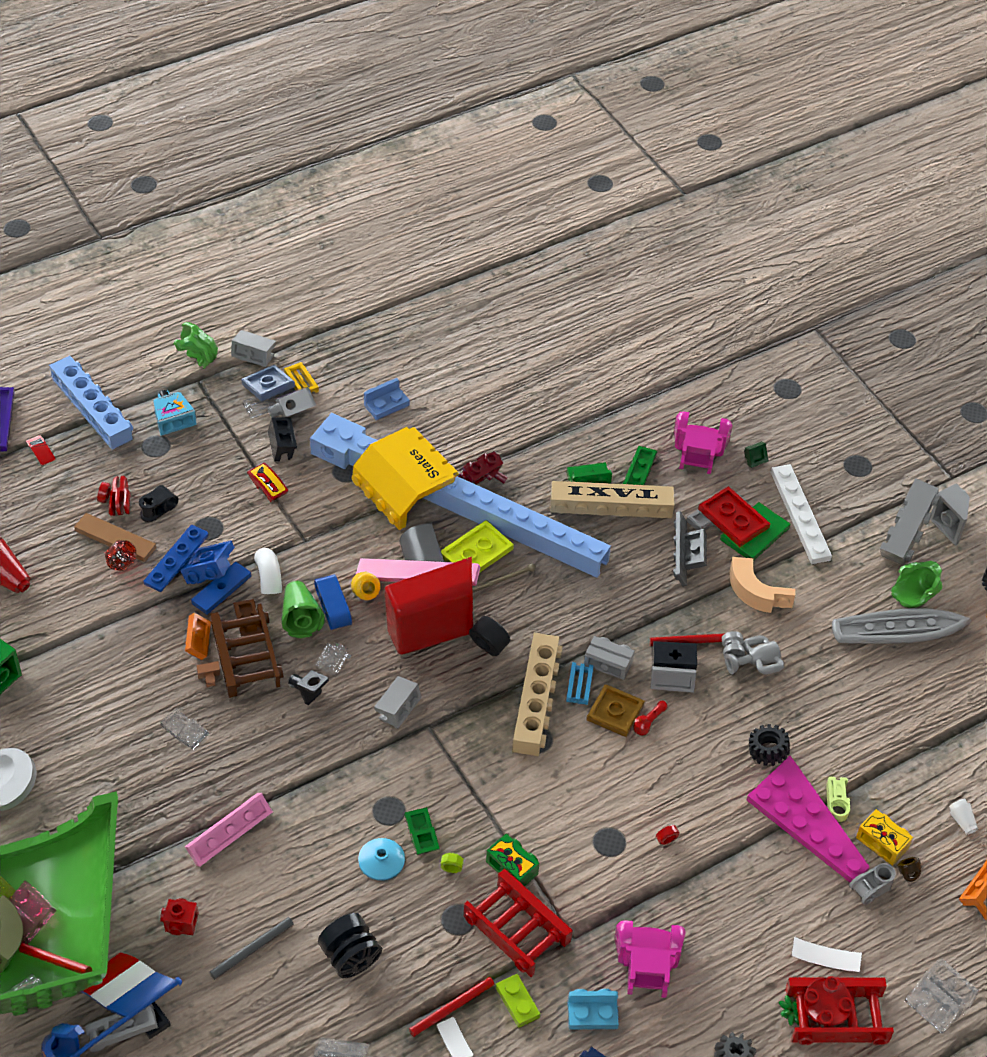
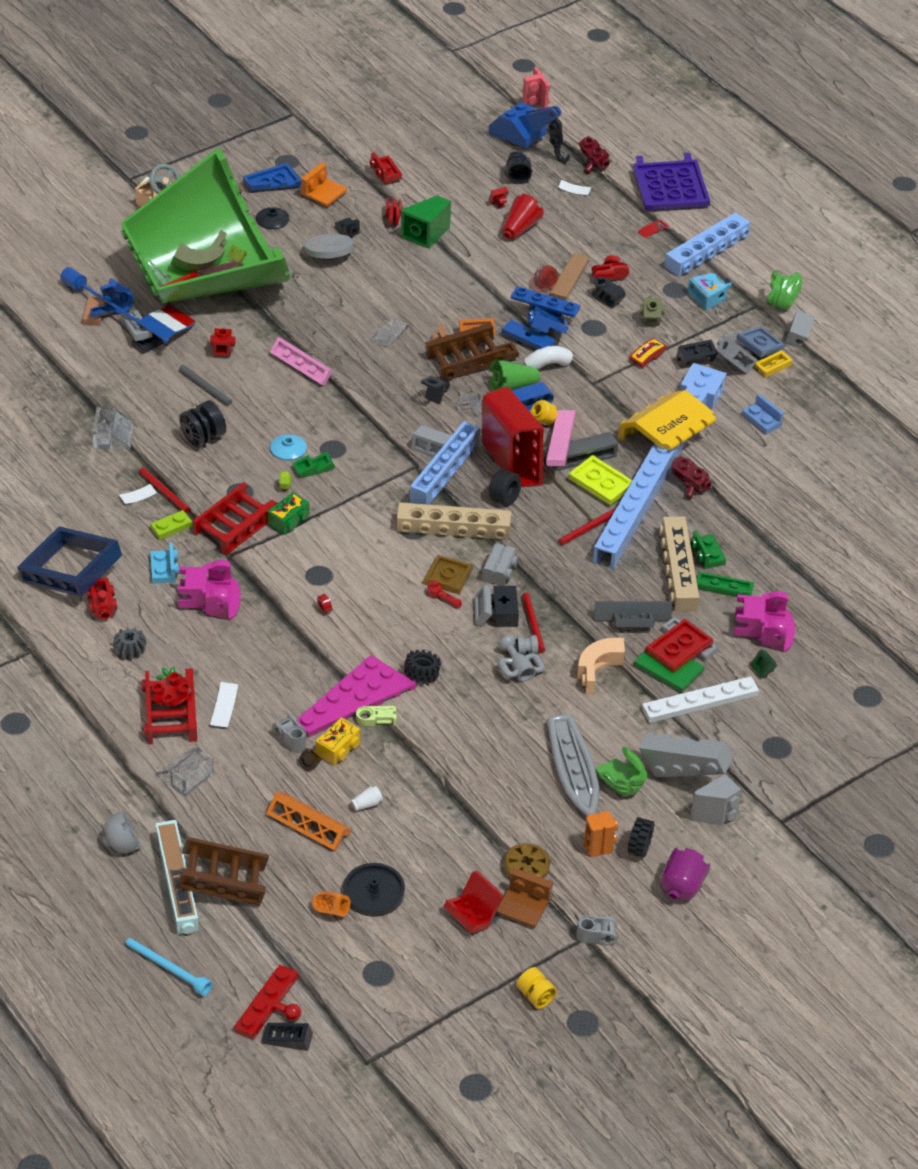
camera: 85 degrees right, 5 degrees down
(203, 465) = (652, 310): none -> olive brick
(448, 690) = (445, 464): none -> light blue brick
(545, 572) = (588, 526): none -> red bar
(581, 669) = (471, 551): dark azure tile -> none

